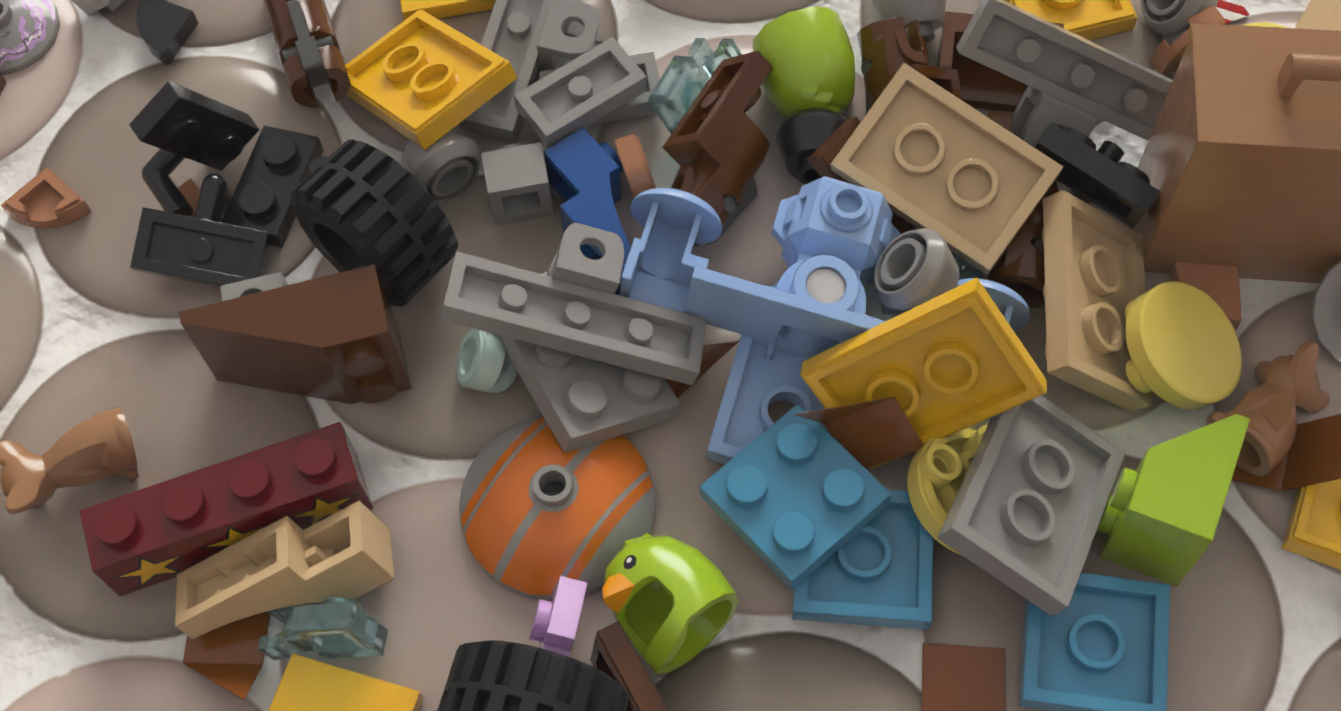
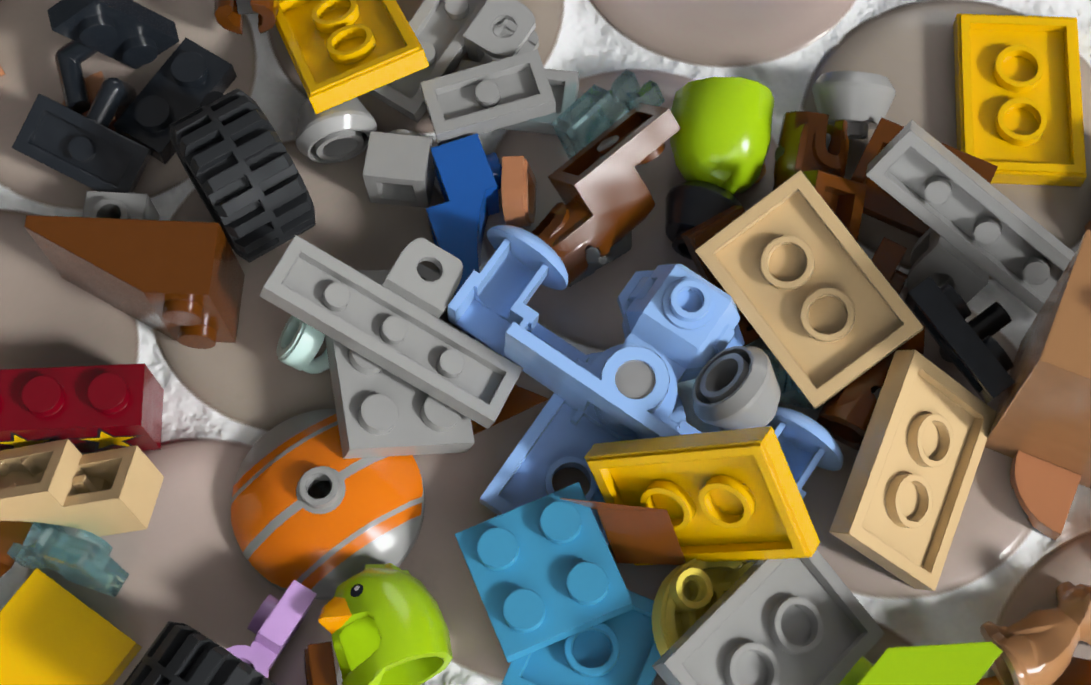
camera: 20 degrees right, 5 degrees up
(1181, 346) = (985, 543): light yellow tile -> none

